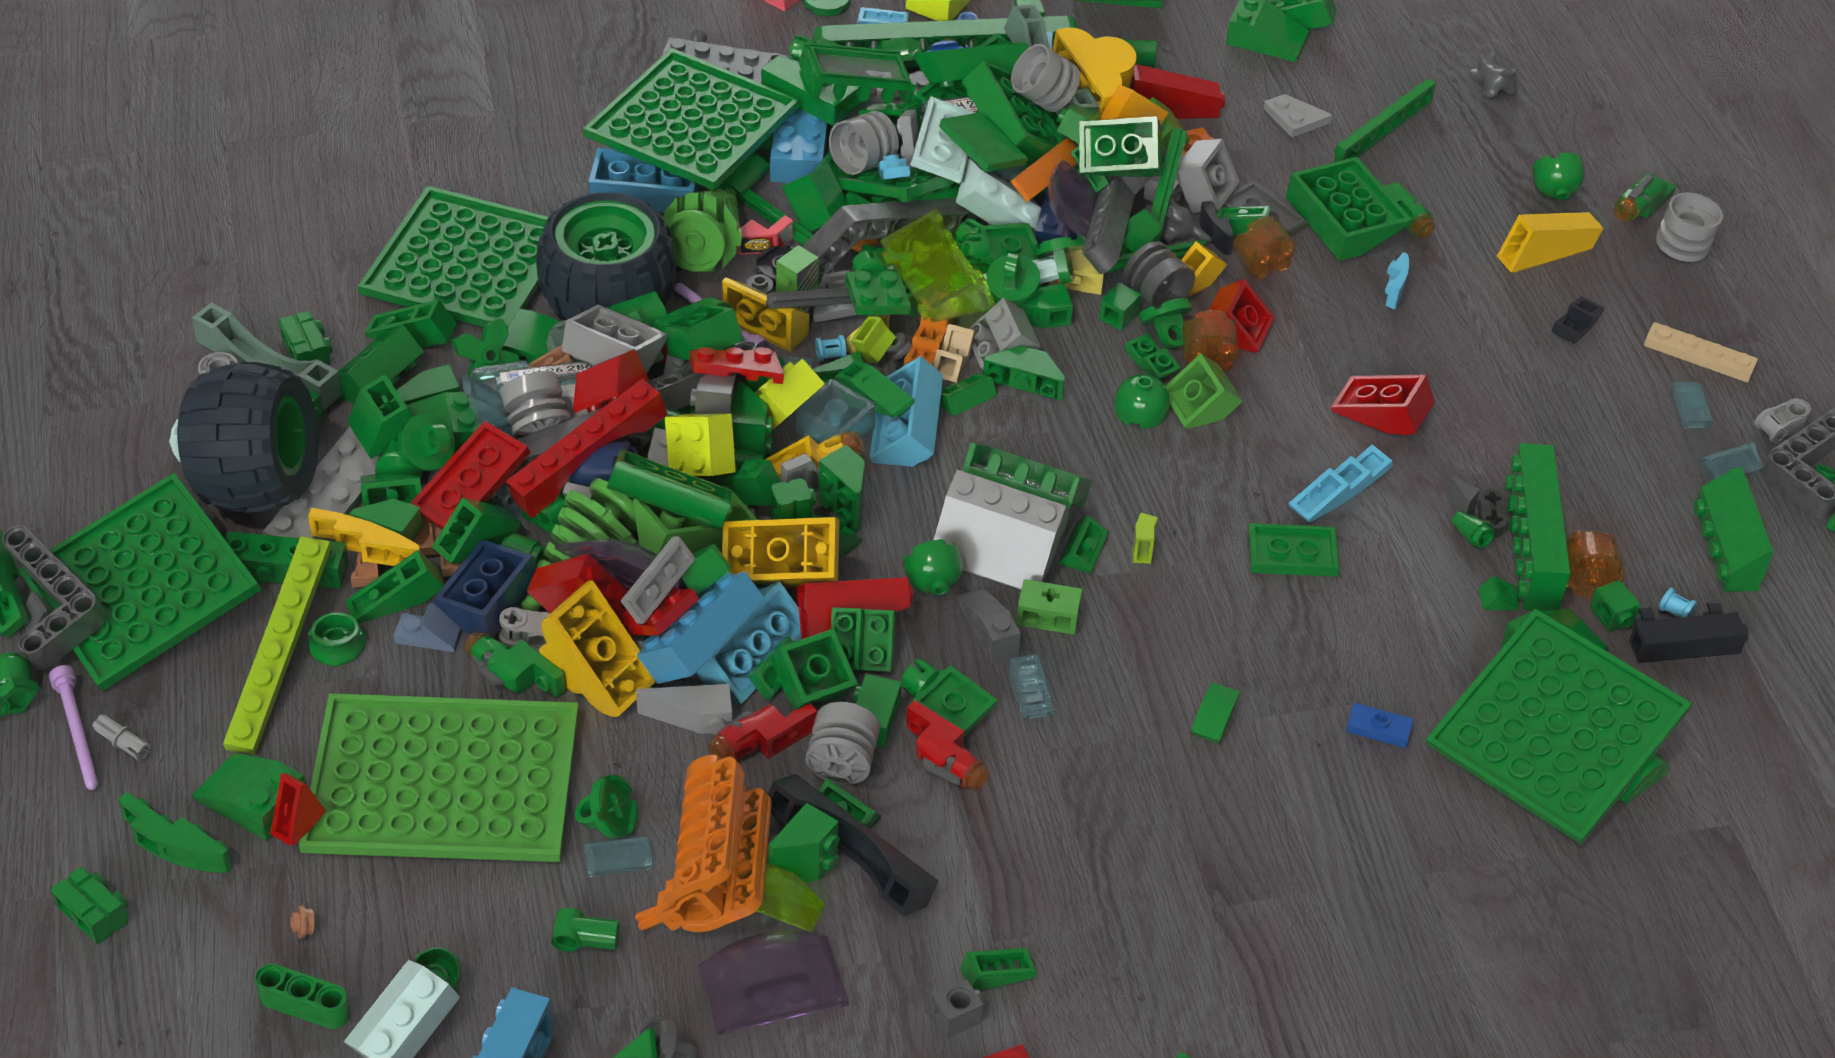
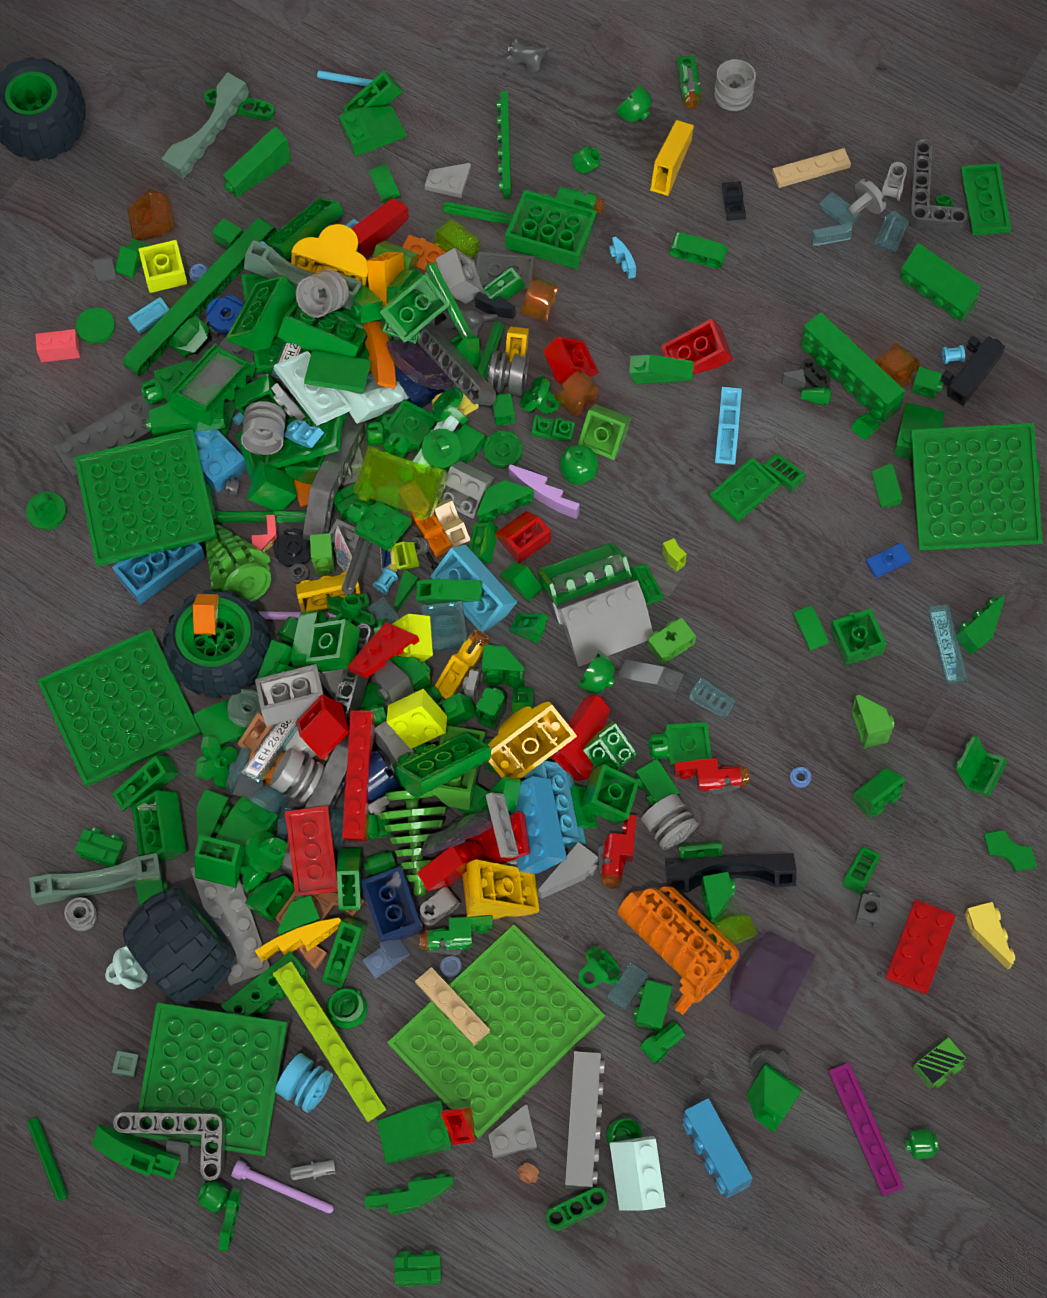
camera: 40 degrees left, 20 degrees up
(90, 510) = (125, 1064): none -> sand green plate
(208, 652) = (306, 1084): none -> medium azure wheel
(337, 880) = (513, 1134): none -> light grey wing
(415, 925) = (583, 1119): none -> light grey brick
(426, 716) = (452, 1006): none -> tan plate
(475, 688) = (451, 966): none -> sand blue tile
(604, 83) = (46, 511): none -> green tile
(613, 208) = (205, 613): none -> orange slope
(618, 890) = (653, 1006): none -> green brick
(764, 330) = (351, 608): none -> green plant
(784, 178) = (232, 486): none -> dark grey plate
(922, 488) = (529, 626): none -> green slope
(958, 446) = (521, 580): none -> green slope
(1009, 415) = (524, 536): none -> red slope
(1037, 823) = (803, 772): none -> medium blue plate
(1078, 396) = (543, 492): none -> lavender slope
(1081, 339) = (502, 449): none -> green tile
(1103, 911) = (879, 792): none -> green slope
(1172, 838) = (871, 722): none -> bright green slope
(1227, 73) = (384, 183): none -> green slope
(1244, 154) = (453, 235): none -> clear neon green brick
(1247, 976) = (979, 769): none -> green bracket
(1255, 754) = (858, 637): none -> green brick
(1285, 148) = (477, 213): none -> green axle
(1318, 381) = (659, 369): none -> green slope
(1352, 576) = (790, 485): none -> green slope
(1355, 850) = (947, 645): none -> clear light blue tile
(1408, 858) = (981, 629): none -> green slope
(1453, 183) = (586, 159): none -> green head
(1458, 661) = (887, 486): none -> green slope
(1487, 328) = (698, 250): none -> green beam
(1655, 413) = (831, 234): none -> clear light blue tile
(1727, 406) = (869, 197): none -> light grey tile

